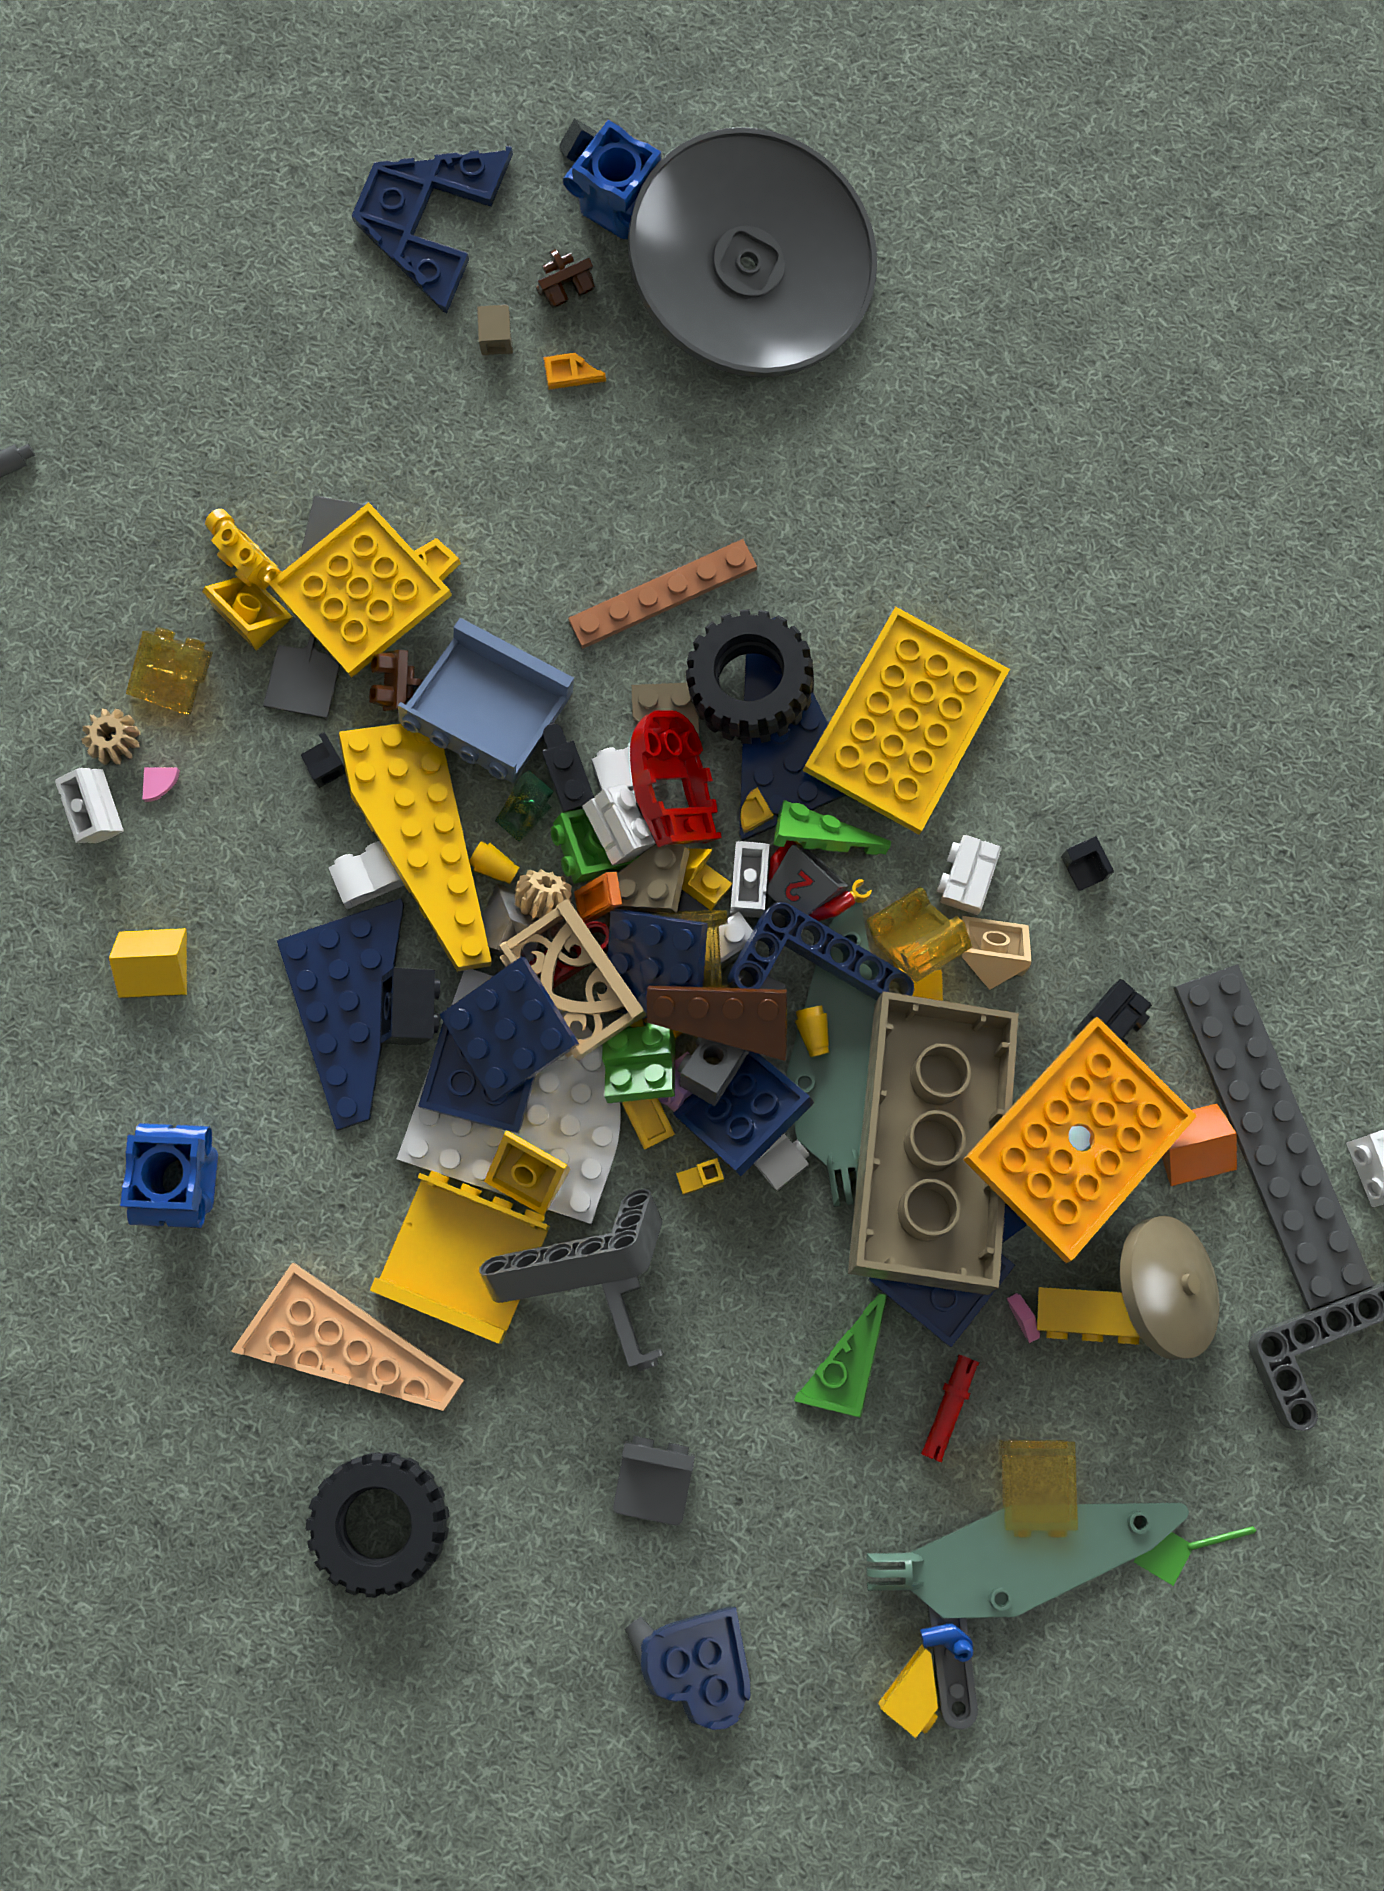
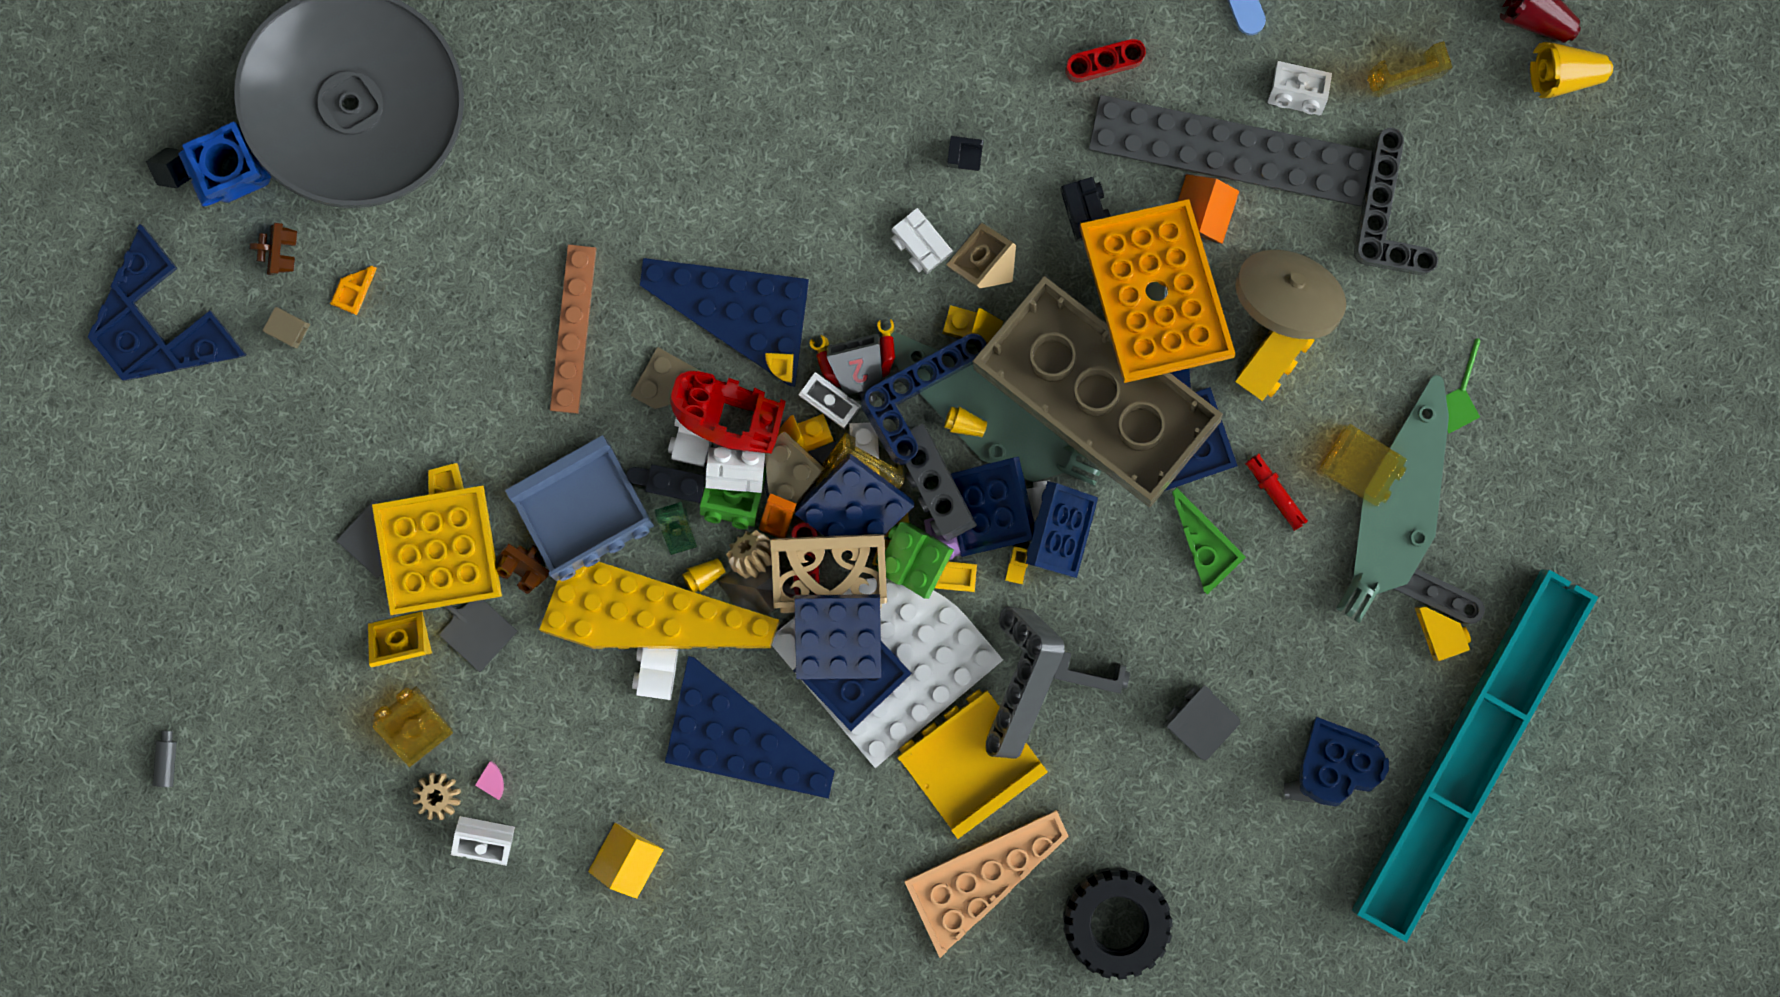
camera: 60 degrees left, 10 degrees up
(146, 1160) = (800, 956): blue piece -> none
(240, 551) = (347, 625): yellow brick -> none
(323, 762) = (550, 653): black panel -> none
(408, 1006) = (775, 697): black brick -> none
(526, 1173) = (943, 684): yellow slope -> none
(730, 1016) = (926, 476): reddish brown wing -> none
(750, 636) = (645, 308): black tyre -> none
(765, 1196) = (1061, 529): none -> dark blue plate
(803, 1819) = (1474, 754): none -> teal piece
(823, 831) = (825, 330): bright green wing -> none
(906, 720) = (781, 213): yellow plate -> none
(918, 935) = (944, 307): clear yellow panel -> none
(951, 1637) = (1423, 586): blue arm -> none
(1024, 1317) = (1247, 402): bright pink tile -> none
(1291, 949) = (1114, 51): none -> red beam

